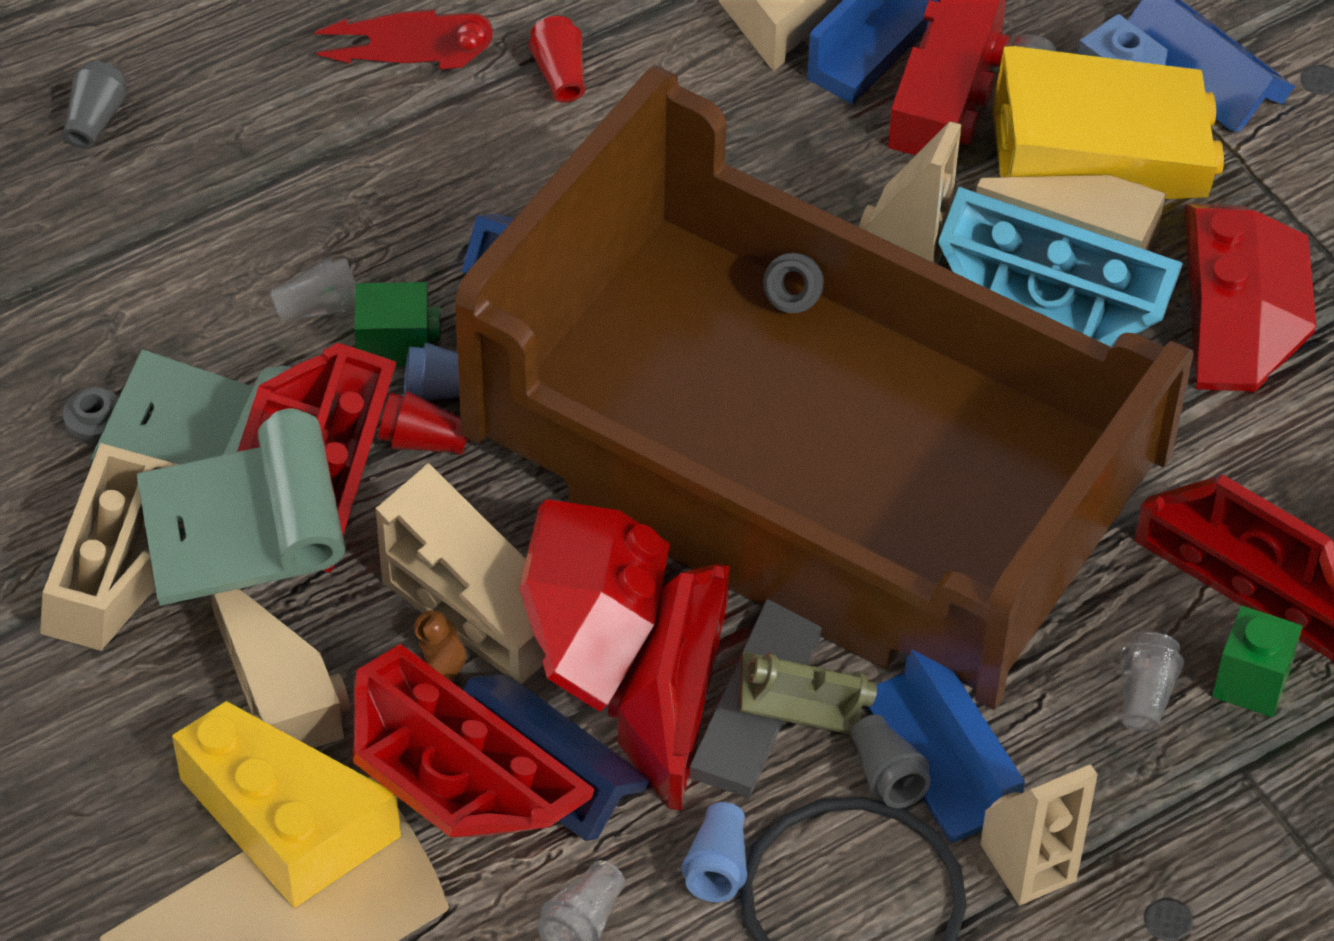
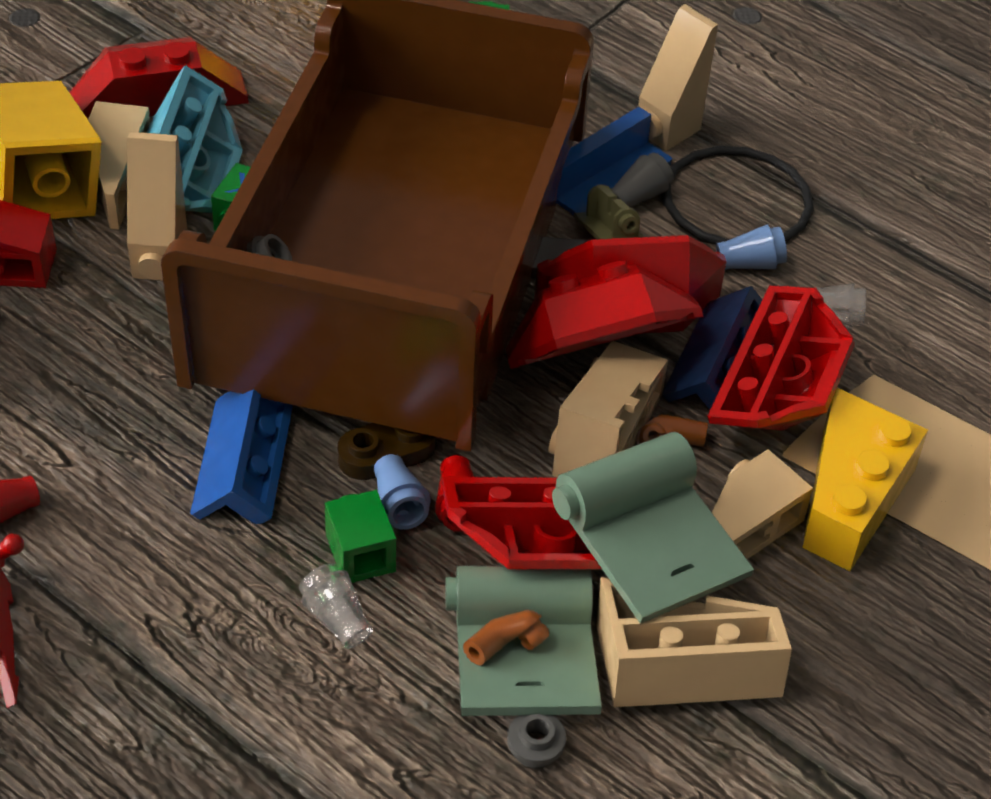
camera: 110 degrees left, 5 degrees down
(213, 406) = (502, 630): none -> dark orange arm

